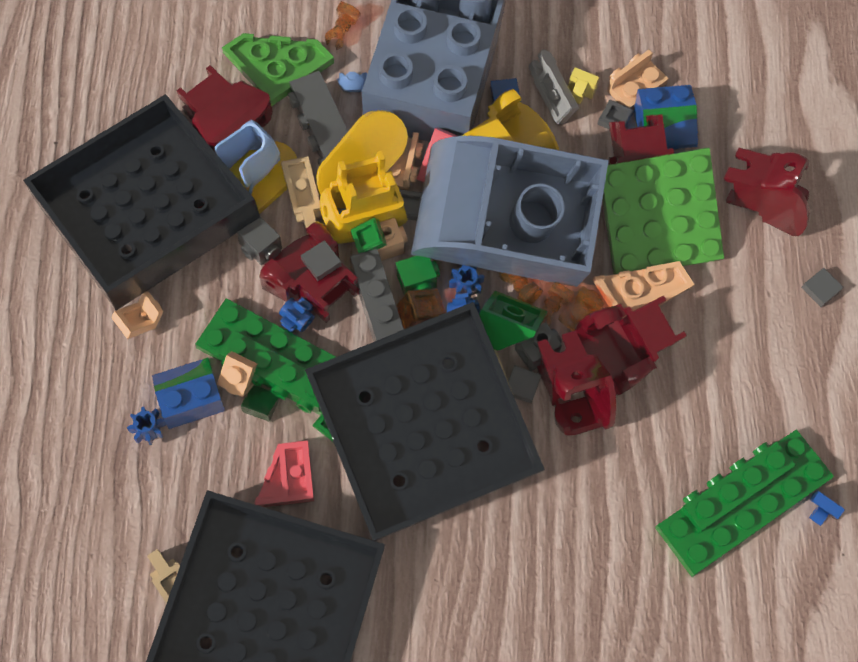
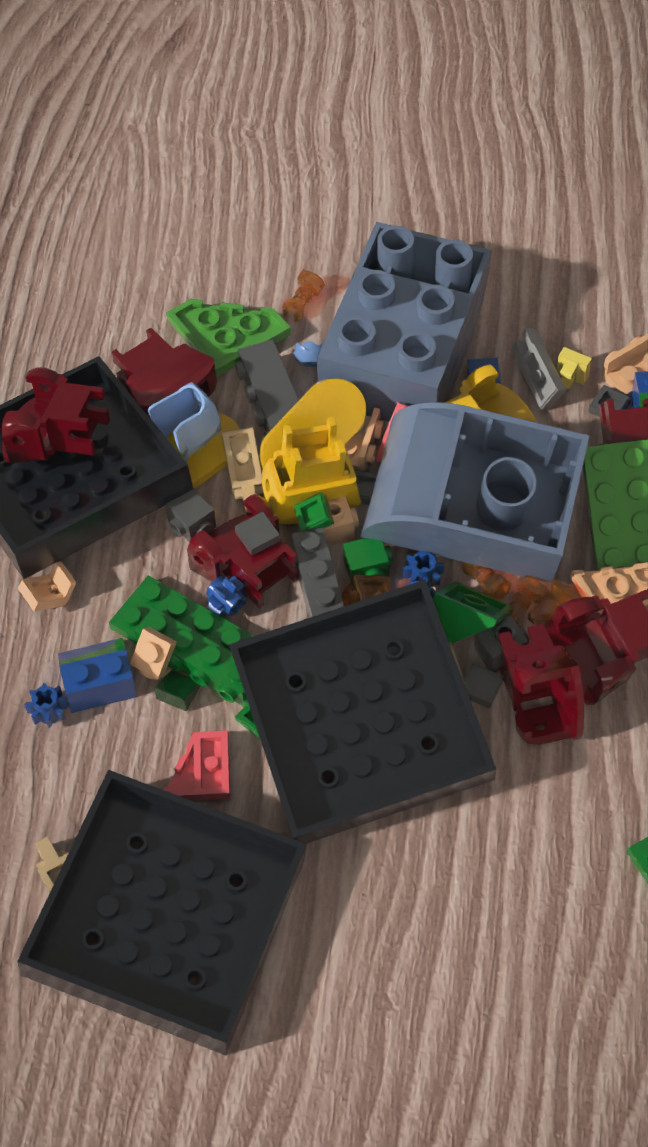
camera: 10 degrees right, 10 degrees down
(129, 161) = (53, 419): none -> dark red piece

